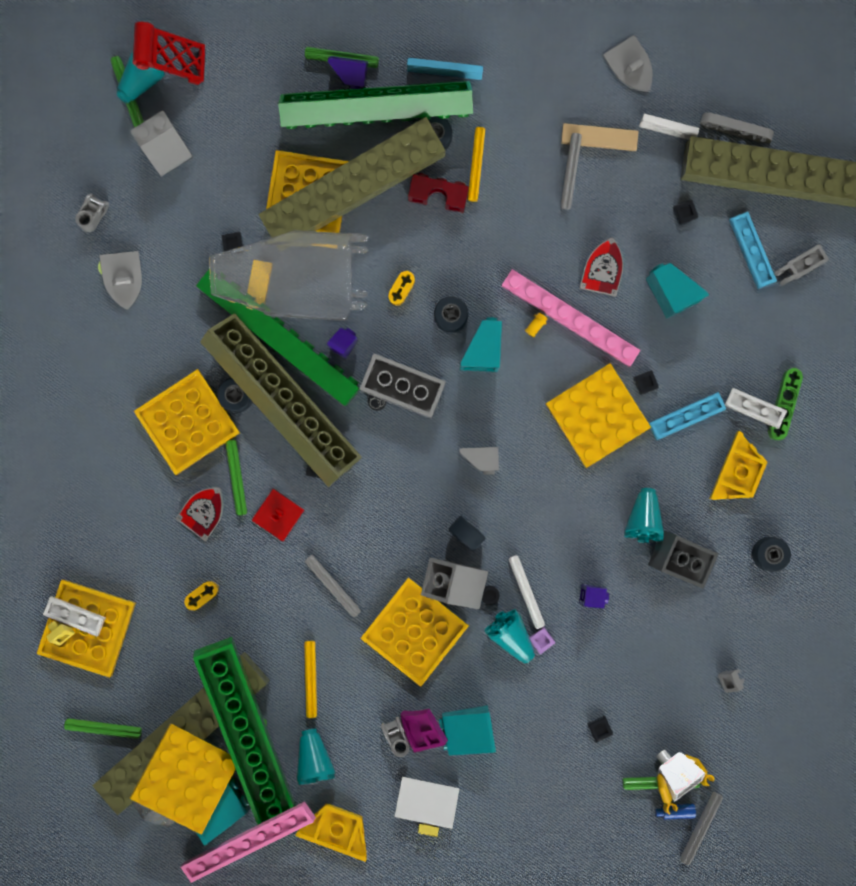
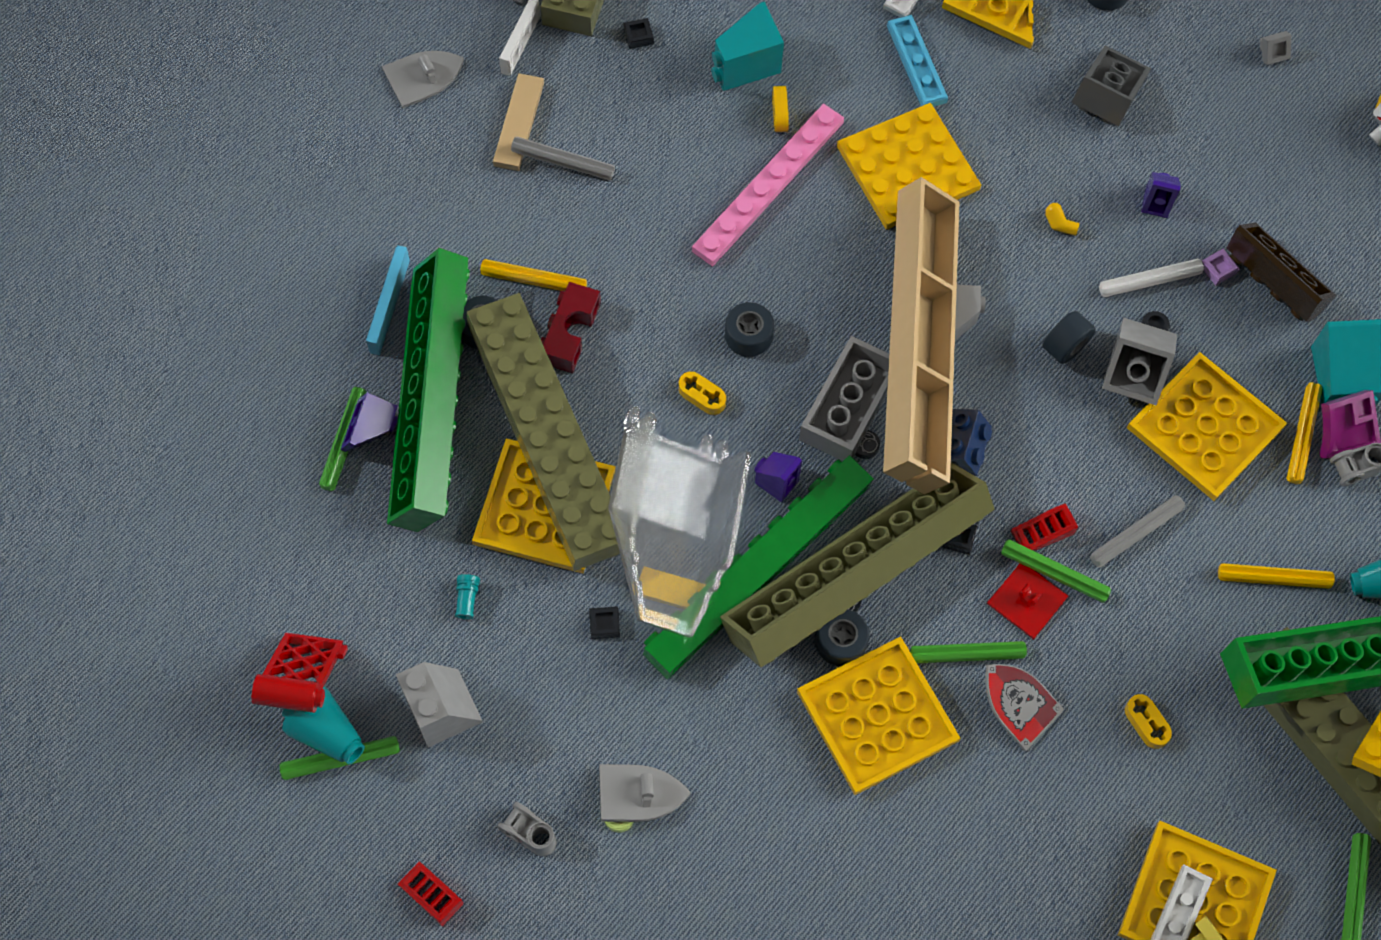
camera: 85 degrees left, 20 degrees down
(49, 169) = (447, 910): none -> red slope
(243, 152) = (467, 589): none -> teal pin
(297, 532) = (1056, 571): none -> bright green axle
(320, 526) = (1061, 512): none -> red slope
(384, 459) = (969, 438): none -> dark blue bracket
(418, 699) = (1304, 433): none -> yellow axle
(450, 429) = (922, 338): none -> tan piece
(485, 348) = (803, 285): teal slope -> none
(511, 635) = (1211, 298): teal cone -> none
(536, 324) = (775, 225): yellow pin -> none
(537, 683) = (1280, 271): none -> dark brown slope
(565, 523) = (1058, 220): none -> yellow arm
(600, 729) = (1341, 209): black tile -> none
(603, 269) = (706, 133): shield -> none
(631, 319) = (780, 109): none -> yellow beam
(645, 518) = (1055, 118): teal cone -> none
(646, 382) = (867, 104): black tile -> none

